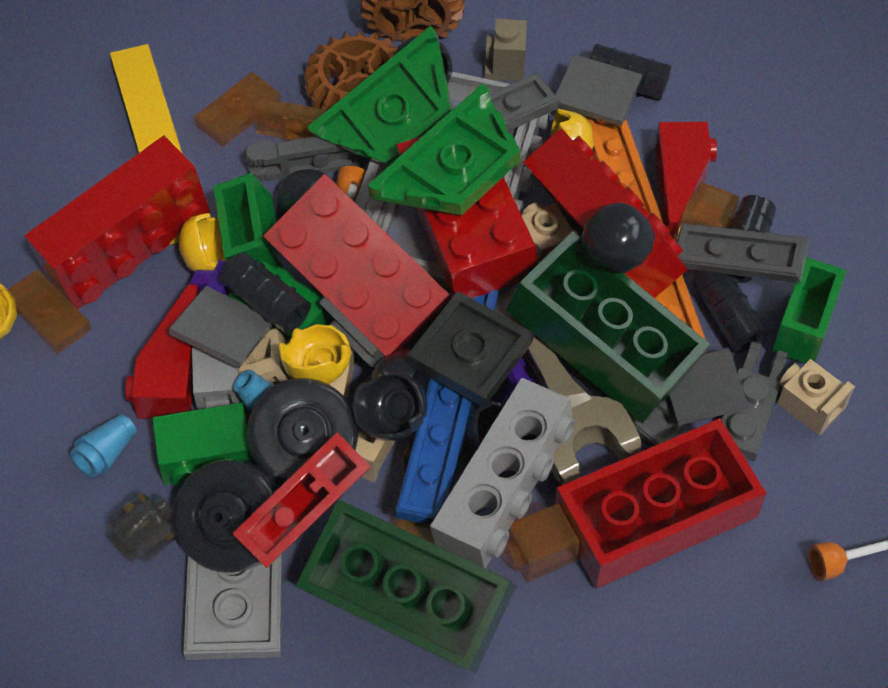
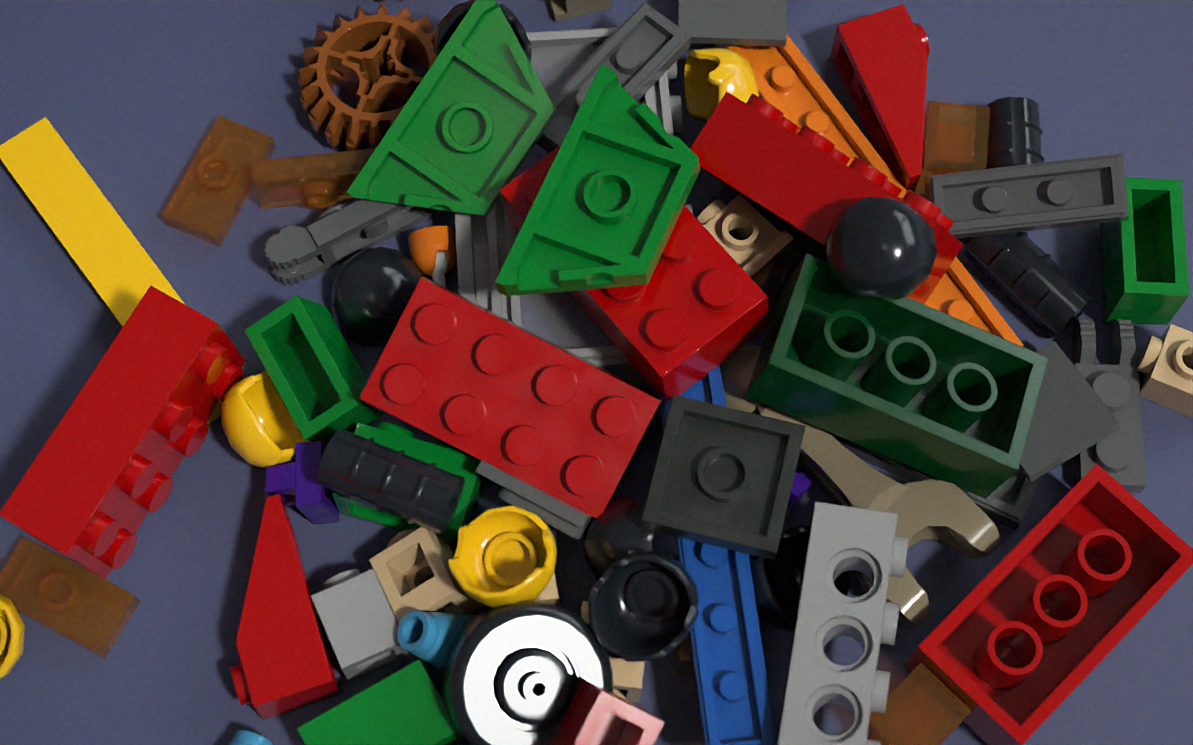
camera: 20 degrees left, 10 degrees up
(221, 327) = (345, 555): dark grey piece -> none

